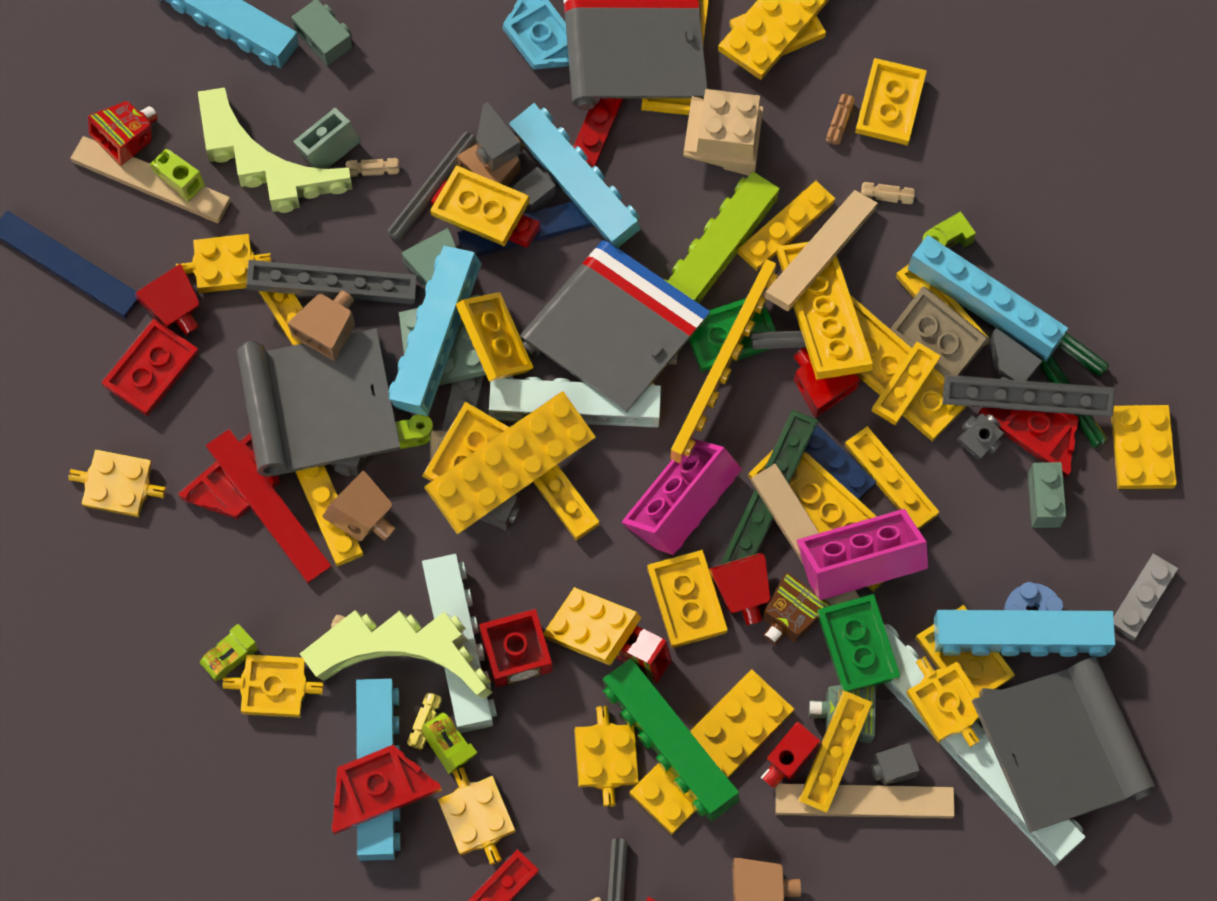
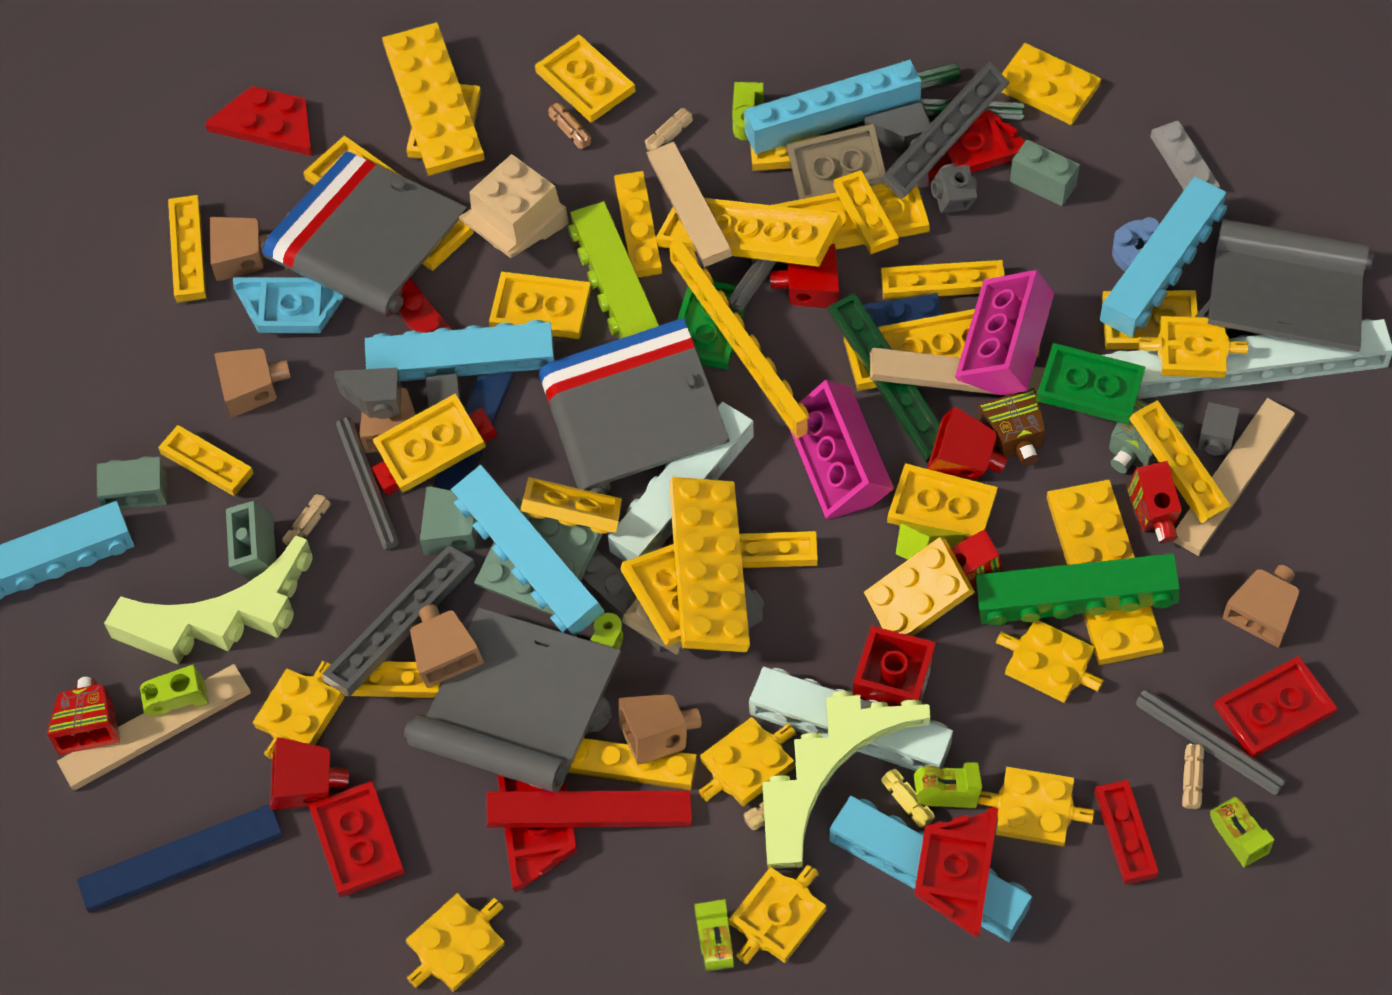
camera: 50 degrees left, 10 degrees down
(375, 67) = (206, 460): none -> yellow plate
(380, 589) = (746, 760): none -> yellow plate
(458, 48) = (248, 379): none -> medium nougat torso
(643, 600) = (916, 537): none -> lime slope
(662, 204) = (548, 299): none -> yellow plate

